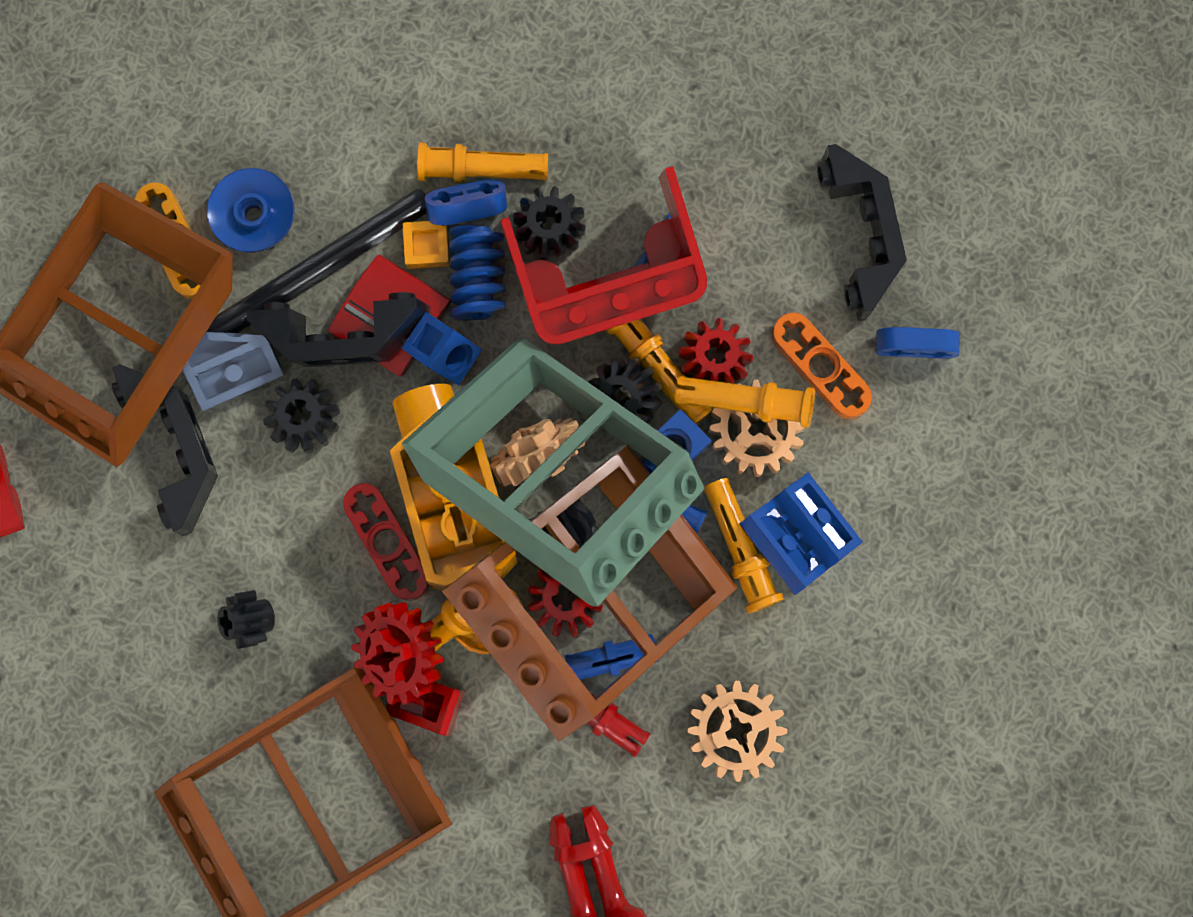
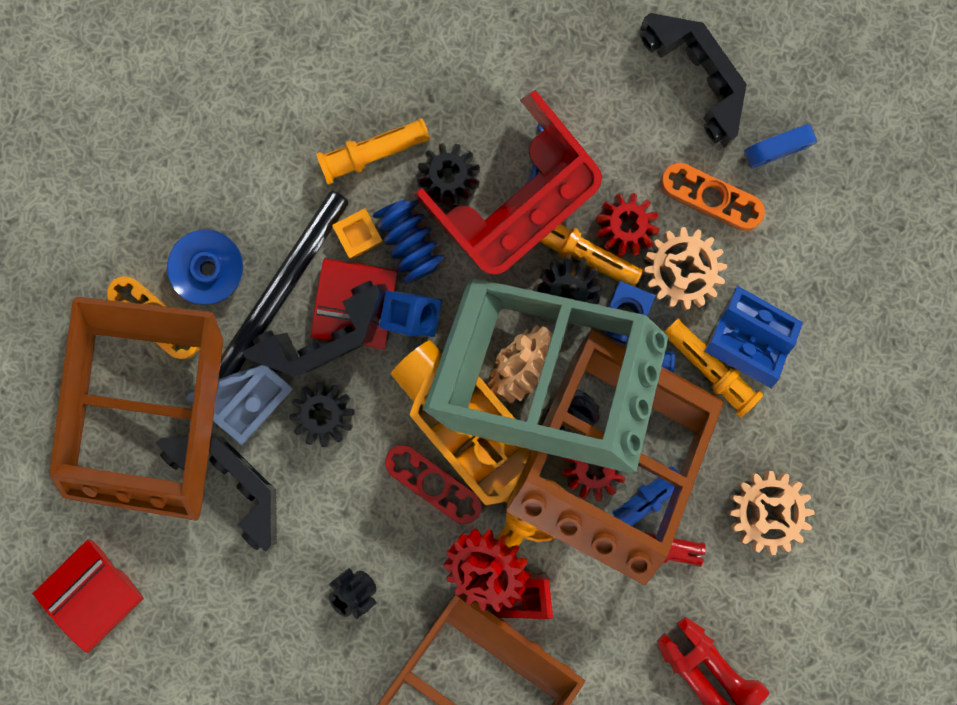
camera: 20 degrees left, 5 degrees up
(466, 202) = (375, 186): blue beam -> none
(767, 401) = (688, 246): light orange pin -> none

